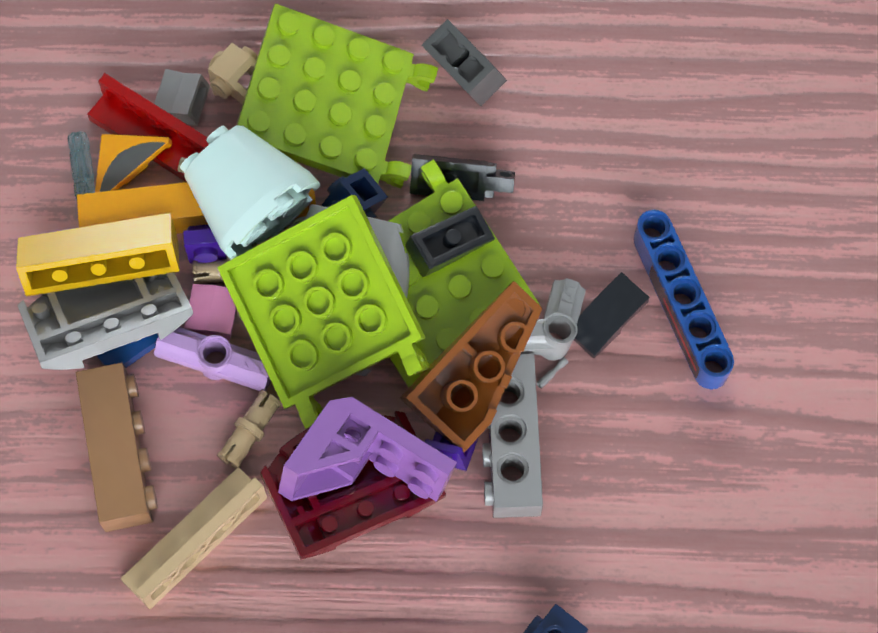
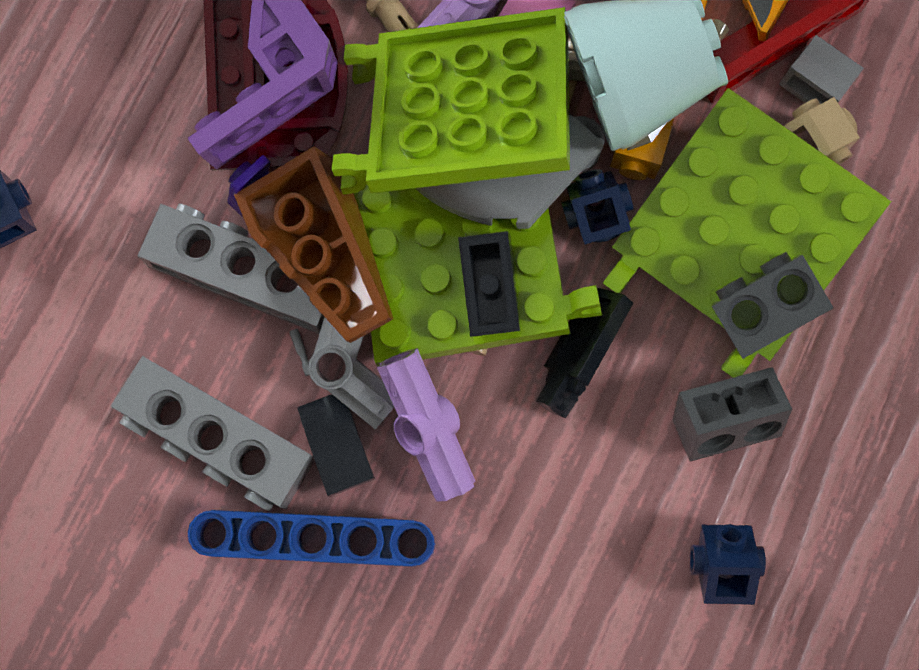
camera: 115 degrees right, 10 degrees up
(389, 47) = (776, 317): none -> dark grey brick
(566, 30) = (728, 564): none -> dark blue brick
(567, 251) = (426, 425): none -> lavender piece
(631, 458) = (153, 387): none -> light grey brick

